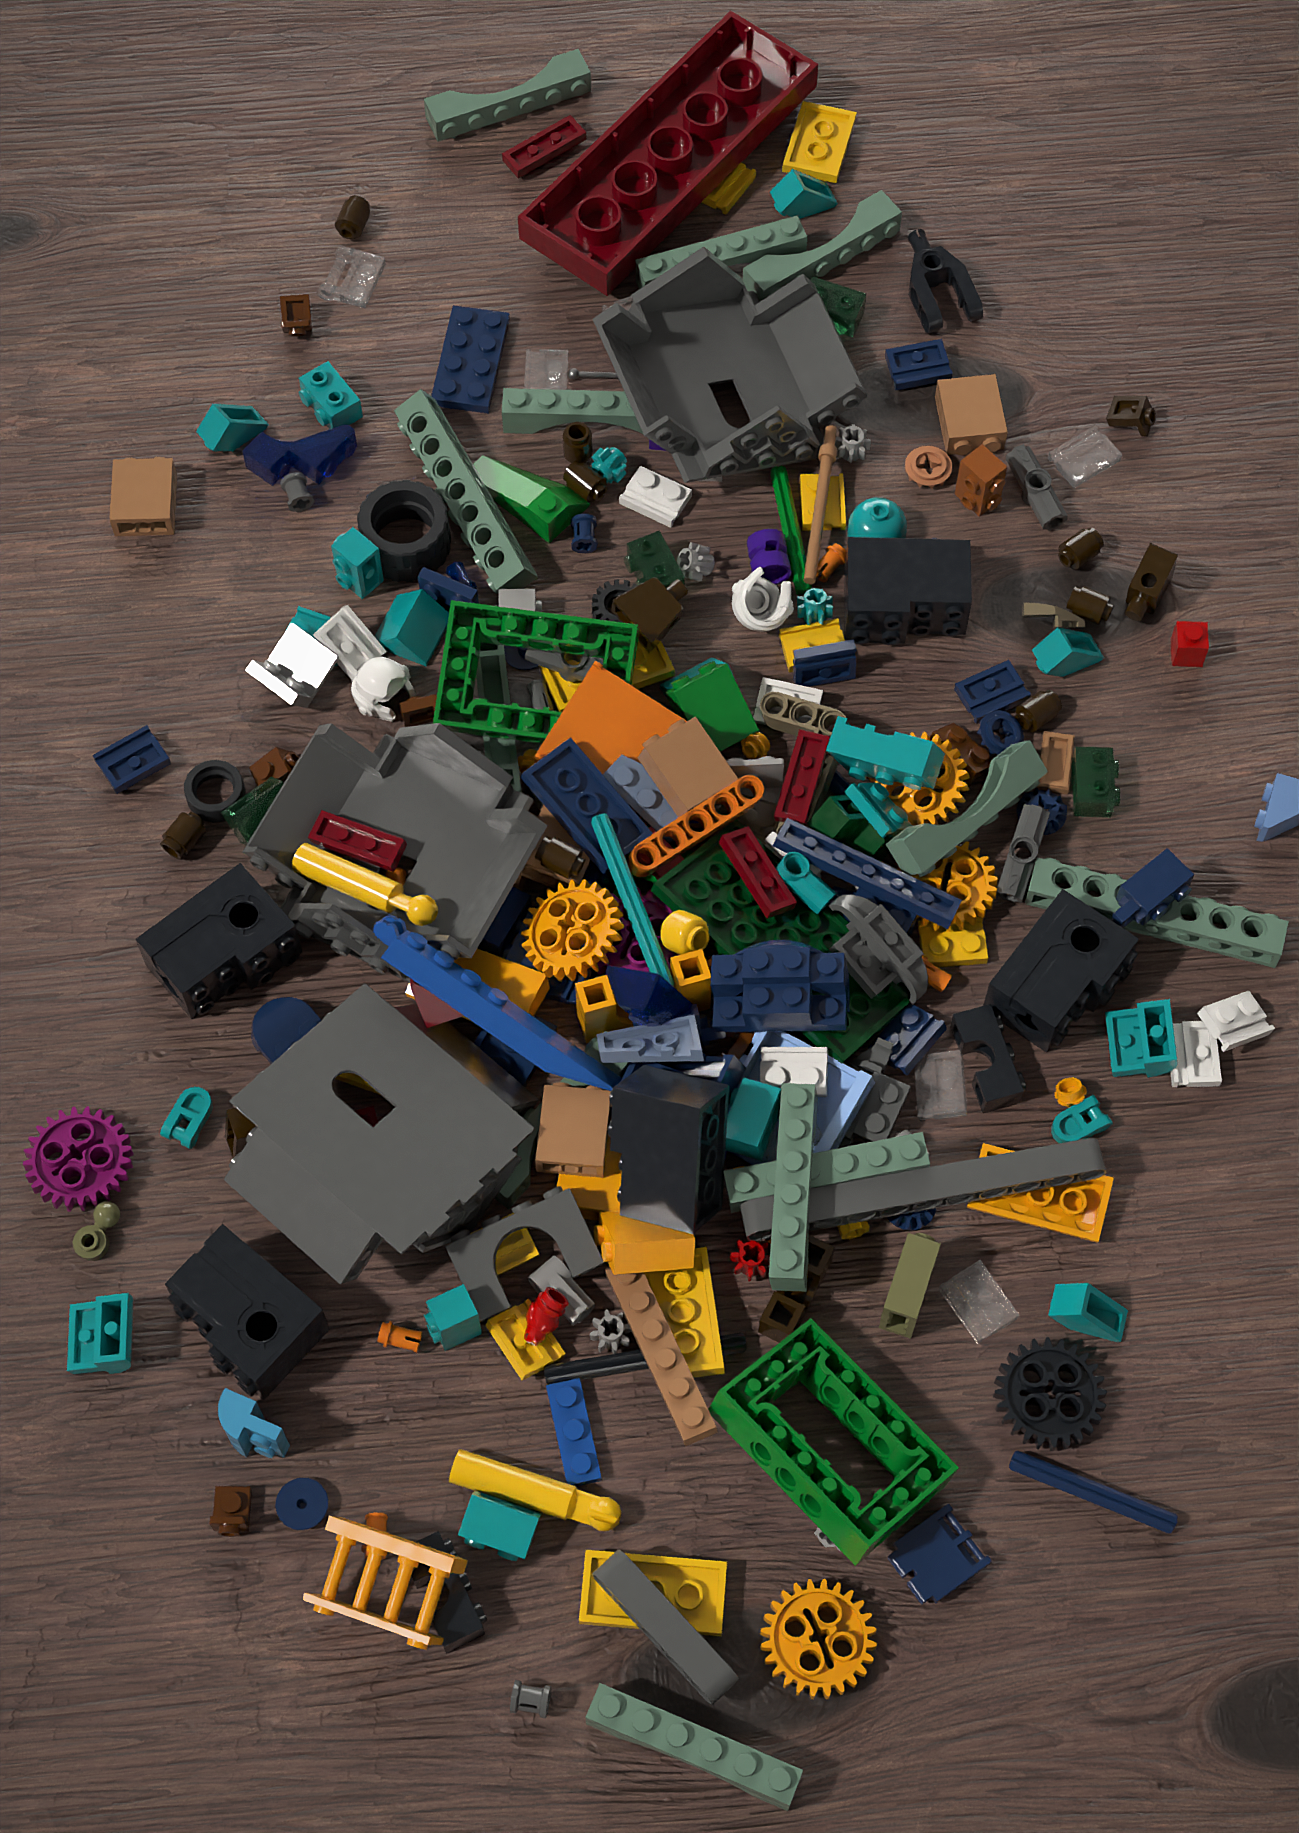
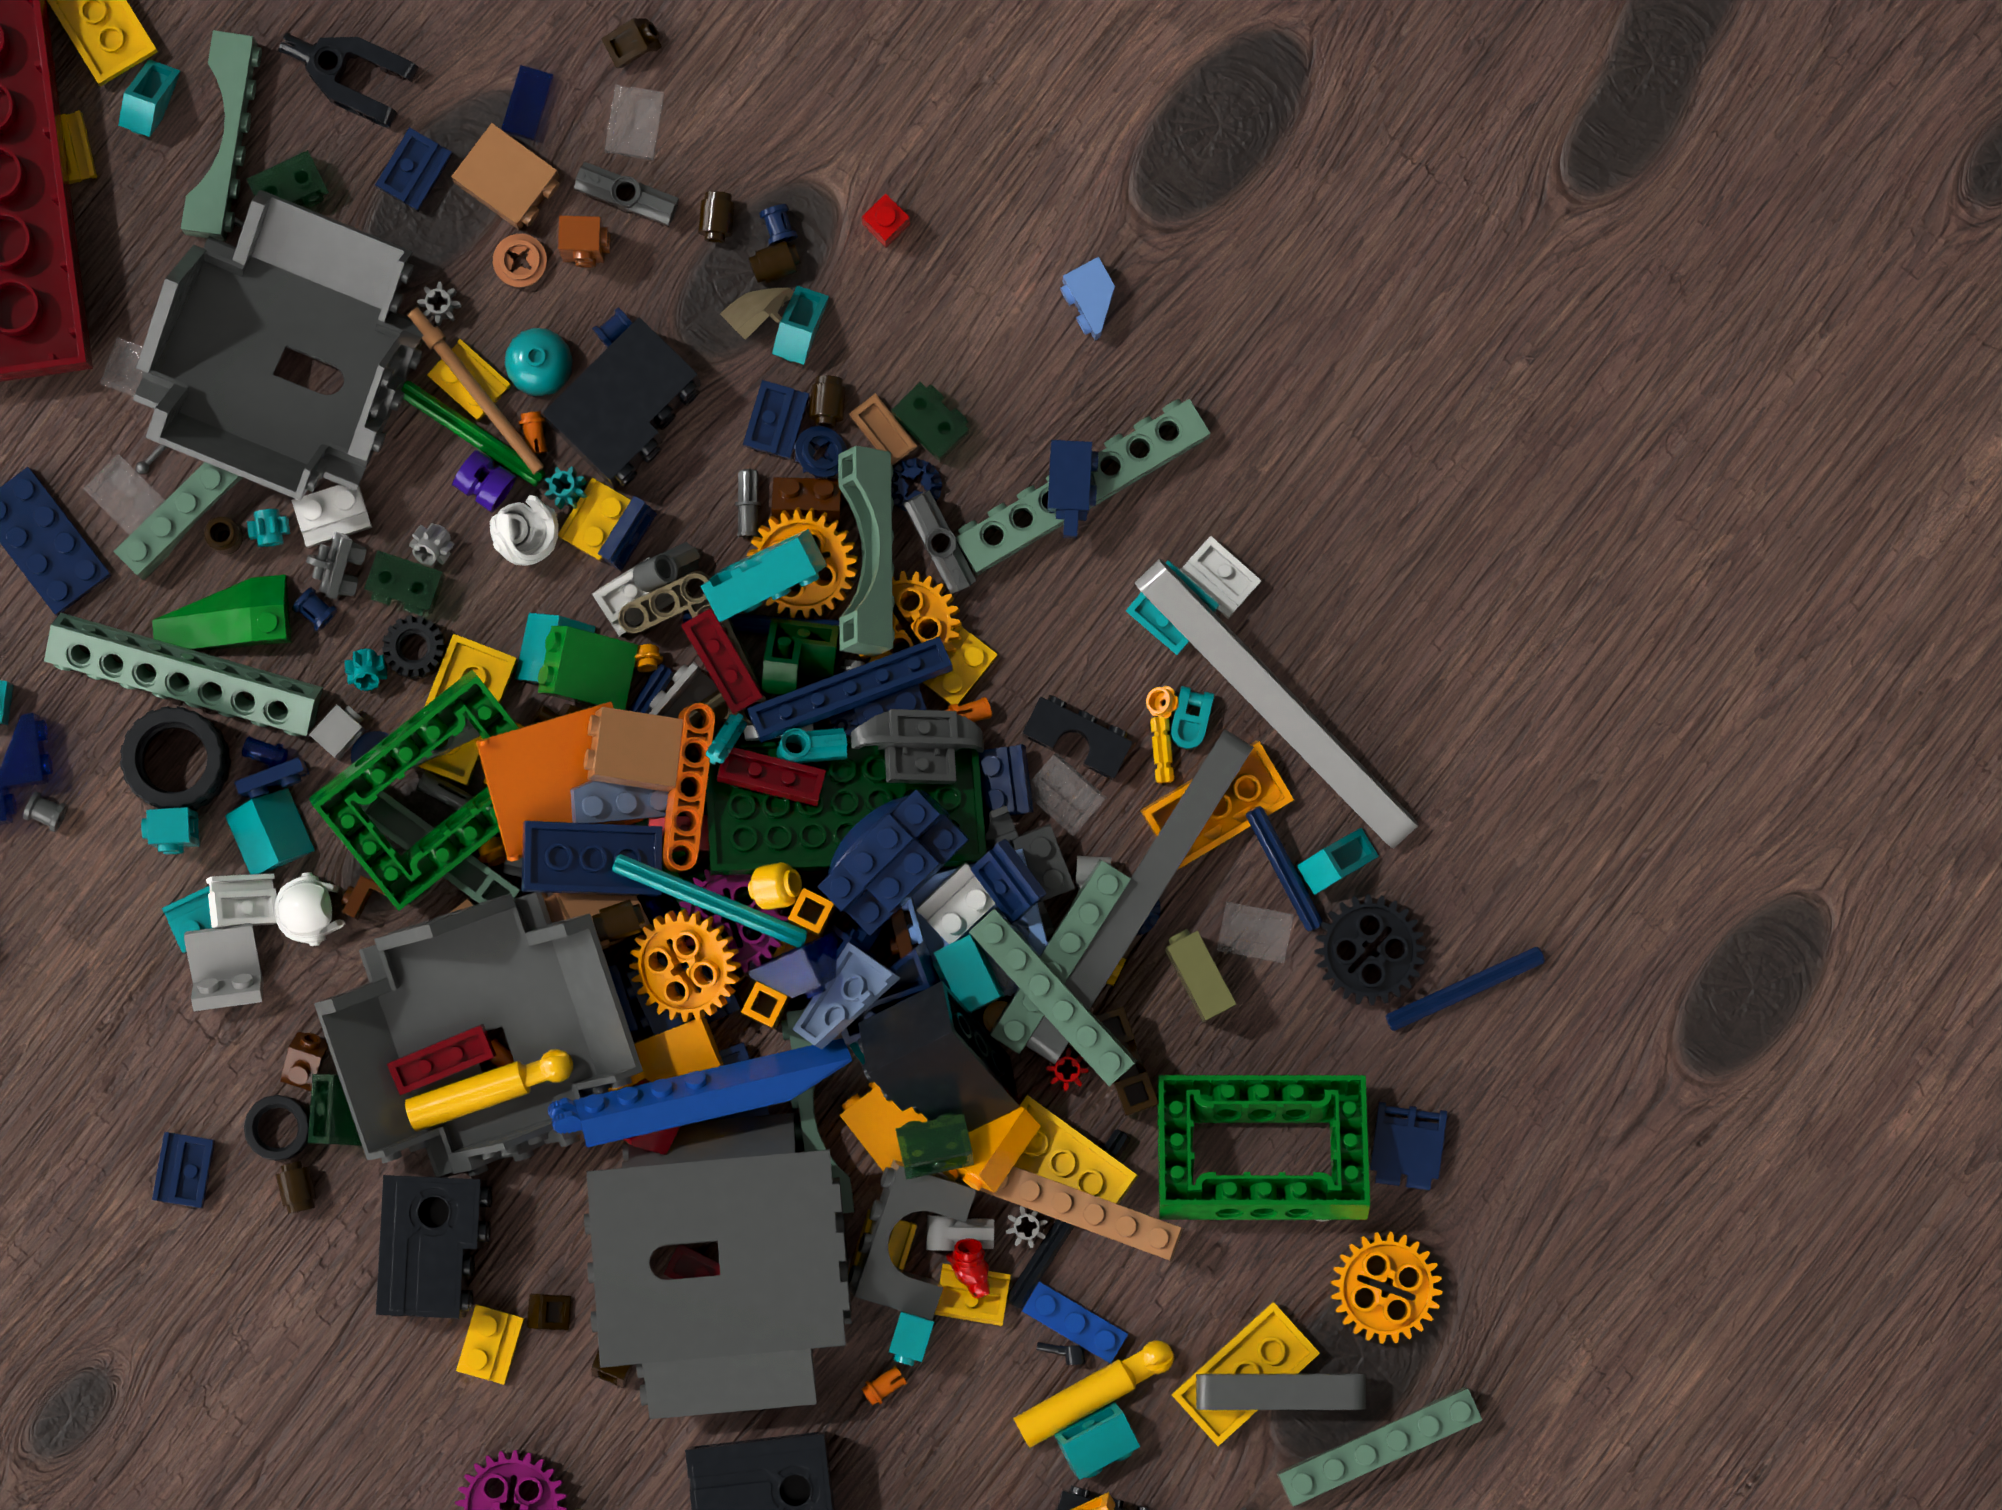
camera: 50 degrees left, 20 degrees up
(186, 1049) = (490, 1344): none -> yellow plate
(193, 1106) = (548, 1379): teal plate -> none
(243, 1066) = (549, 1311): none -> dark brown slope
(280, 1025) = (550, 1254): dark blue slope -> none
(549, 1452) = (1073, 1353): none -> black hand
(573, 1130) = (849, 1115): medium nougat brick -> none
(575, 591) = (365, 669): none -> teal gear
(585, 481) = (265, 561): dark brown brick -> none
(606, 1195) = (934, 1145): none -> clear green brick
(614, 528) = (331, 565): none -> dark grey hips
(652, 608) = (451, 631): dark brown torso -> none
(744, 246) = (128, 271): sand green arch -> none
(753, 819) = (726, 738): none -> teal axle
(826, 693) = (666, 567): none -> dark grey piece
(843, 1081) = (1008, 881): none -> dark blue plate
(878, 808) = (801, 622): teal plate -> none
(922, 720) = (748, 503): none -> dark grey axle
(1029, 392) = (527, 102): none -> clear blue tile
(1037, 1123) = (1162, 750): none -> yellow axle
(1044, 1278) = (1284, 868): none -> dark blue axle
(1060, 970) = (1060, 615): black piece -> none
(1115, 586) = (778, 224): none -> dark blue bush
(1150, 581) = (801, 184): dark brown torso -> none
(1152, 1166) = (1276, 703): none -> light grey beam
(1235, 1020) = (1225, 519): white plate -> none

